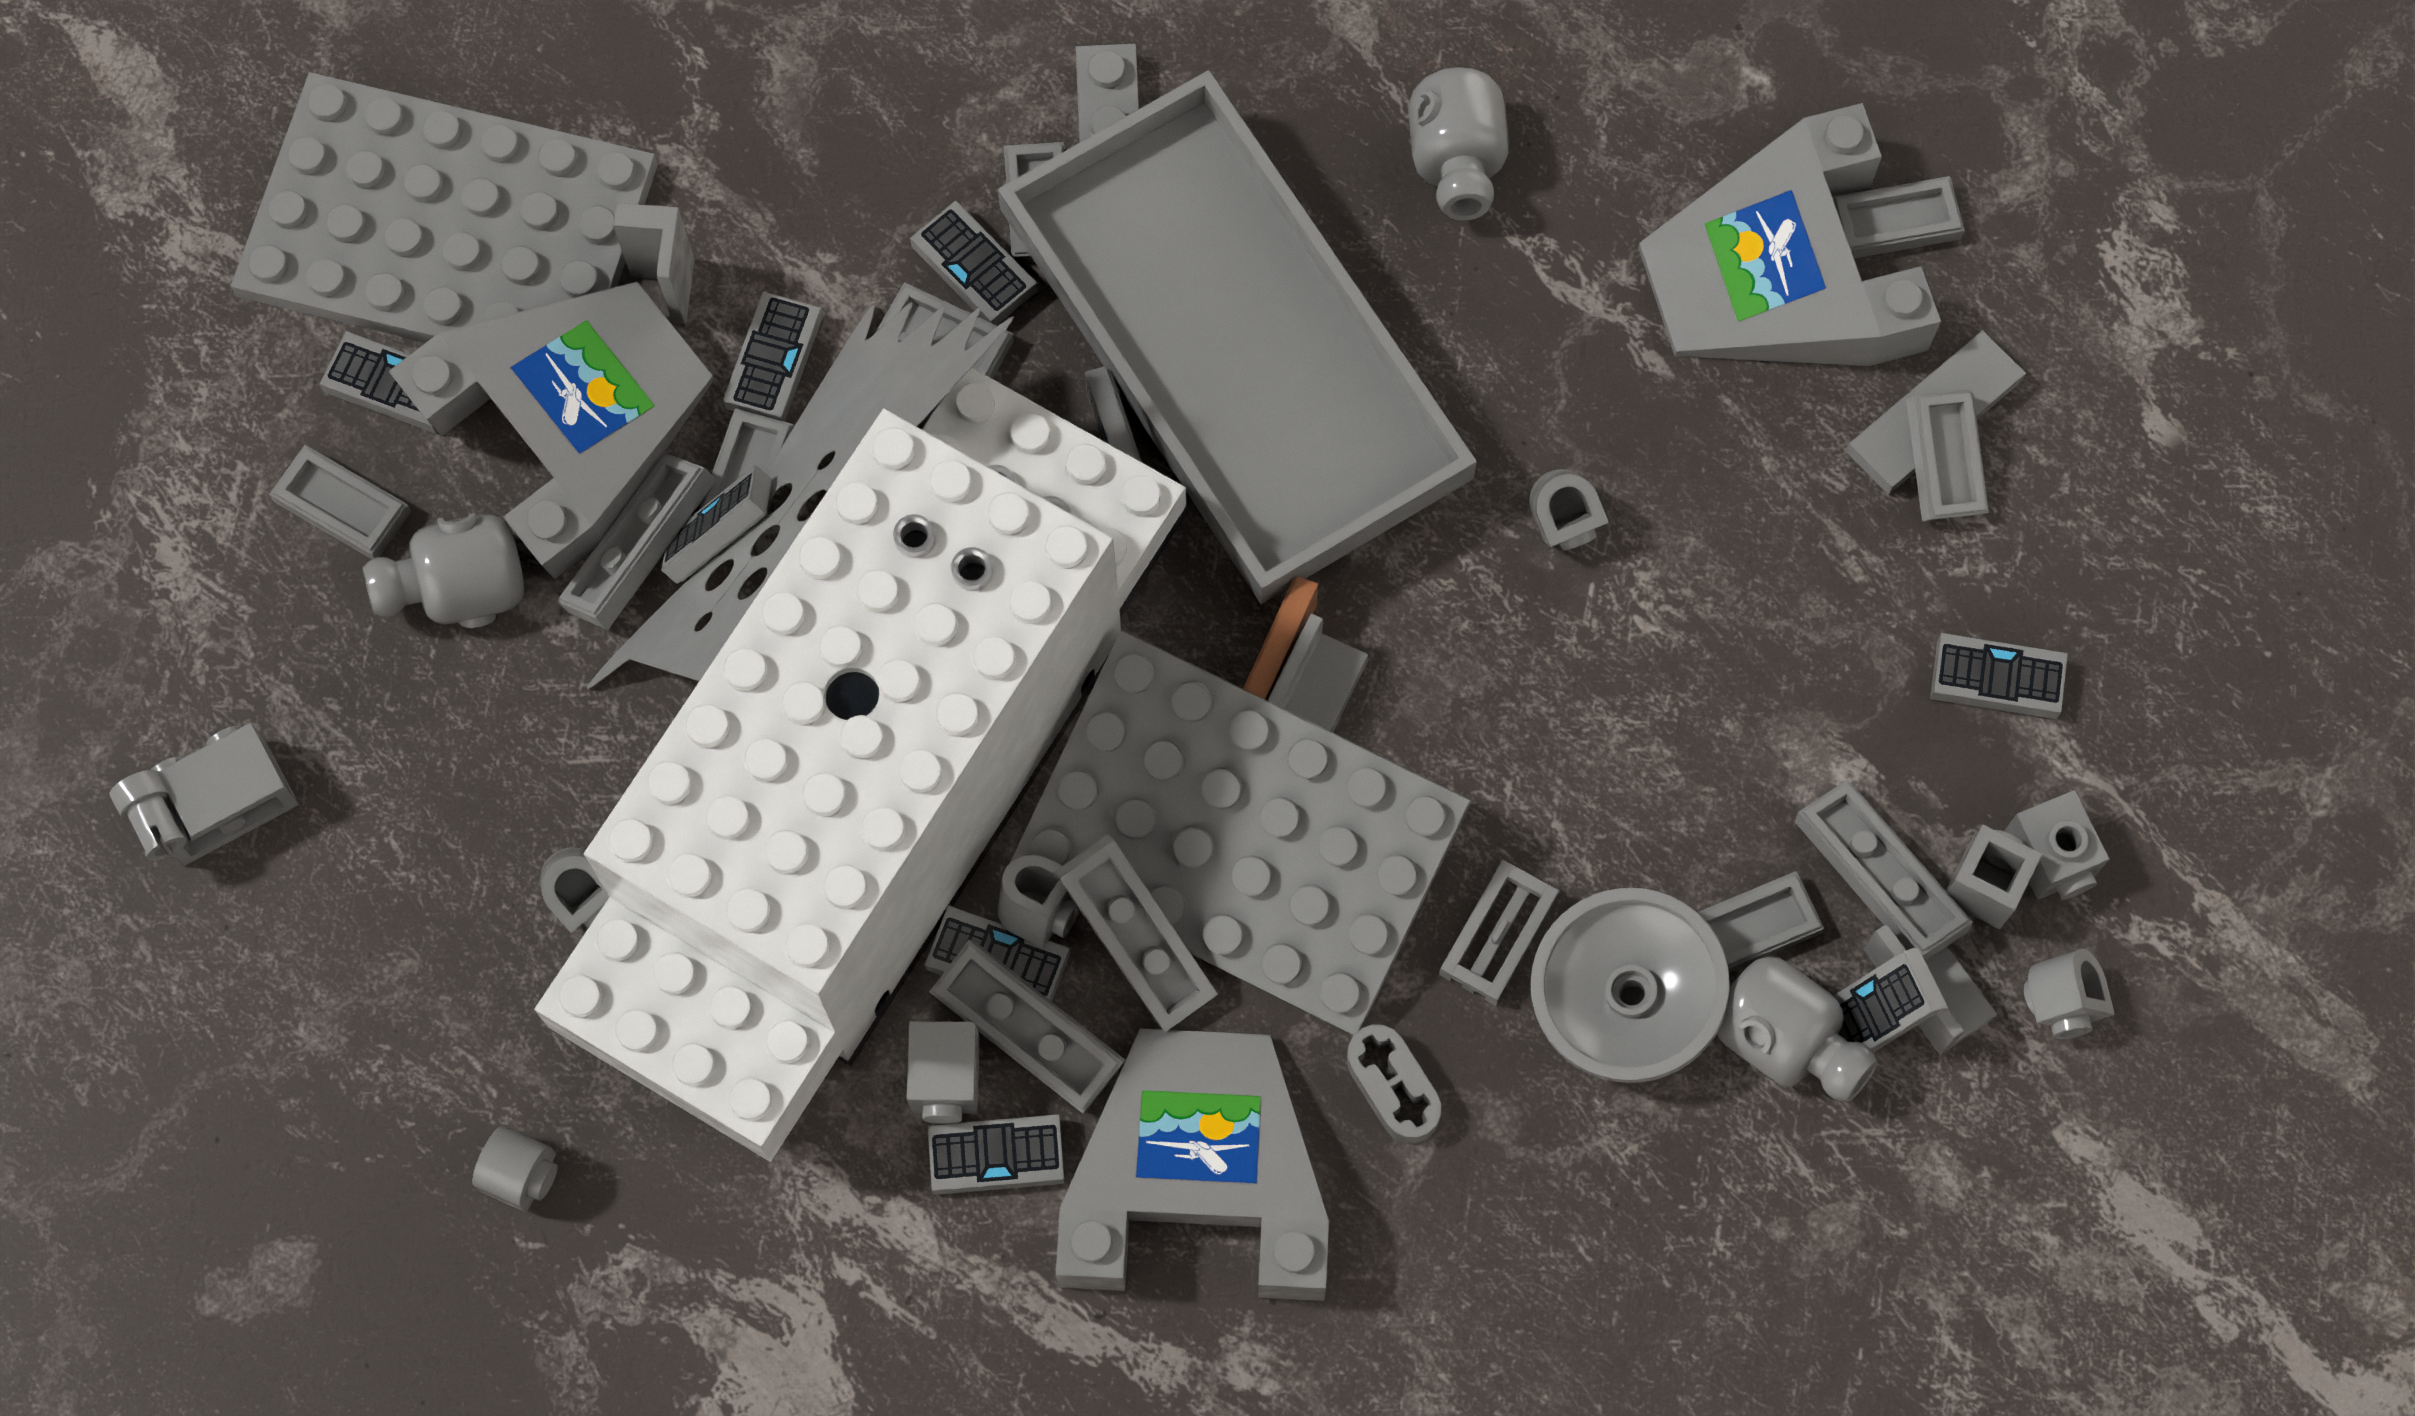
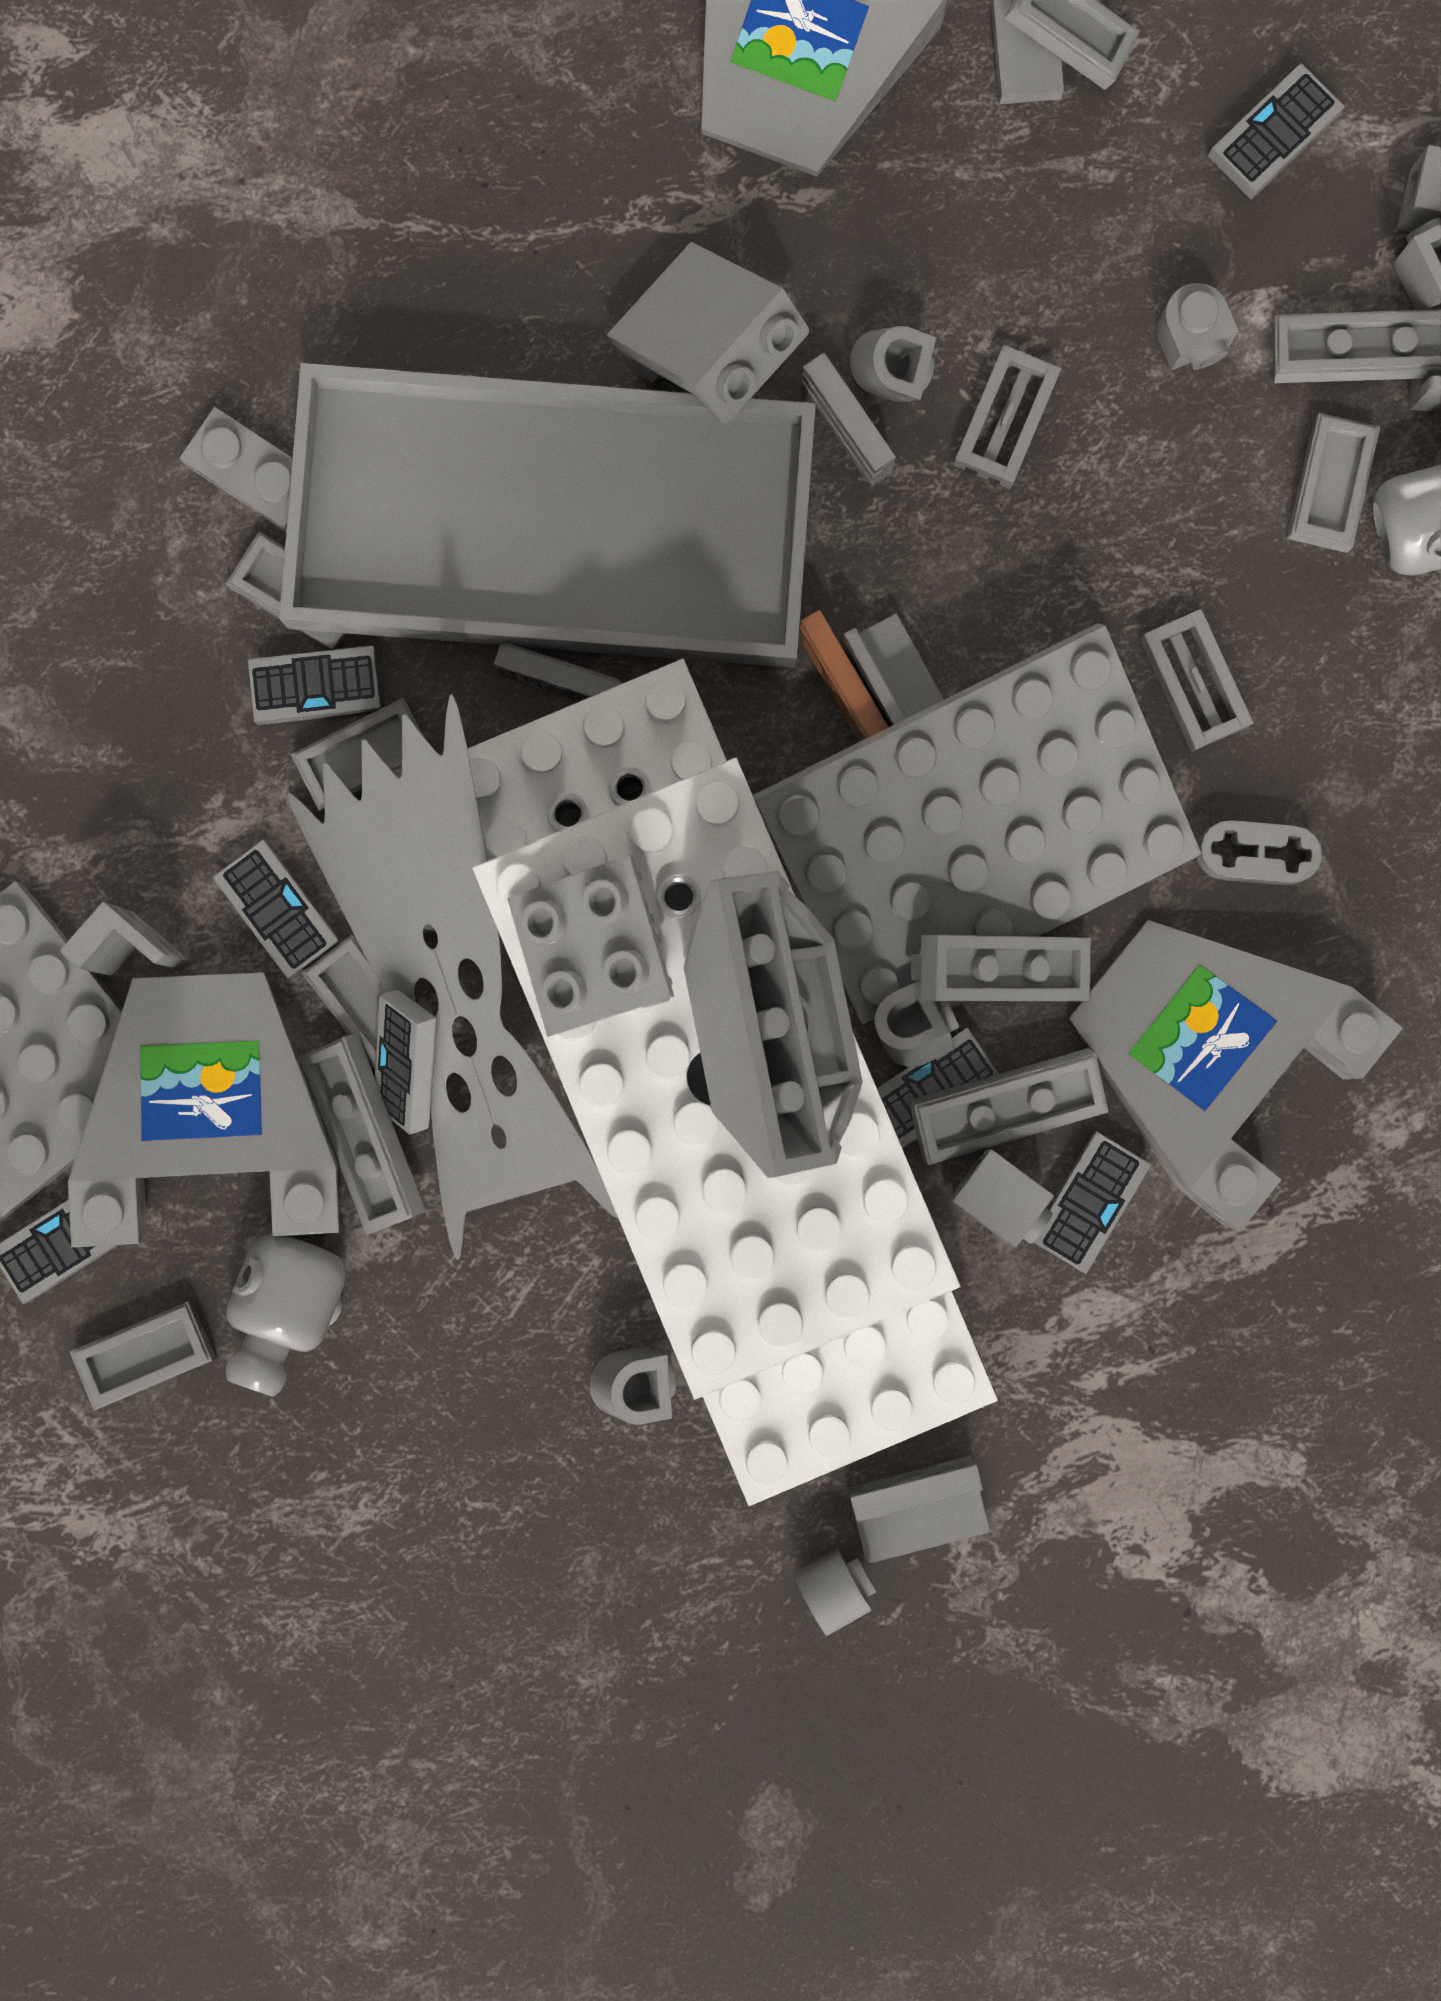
camera: 55 degrees left, 15 degrees up
(205, 796) = (332, 1638): light grey hinge -> none
(634, 1196) = (919, 1509): none -> light grey panel
(883, 524) = (591, 946): none -> light grey hinge
(921, 689) = (772, 1024): none -> light grey wedge
(1459, 138) = (507, 203): light grey piece -> none
(1471, 347) = (710, 330): none -> light grey panel
(1492, 507) = (847, 420): none -> light grey tile
(1602, 654) = (986, 465): none -> light grey tile
(1622, 943) = (1375, 604): light grey dish -> none
(1784, 722) = (1196, 327): none -> light grey plate

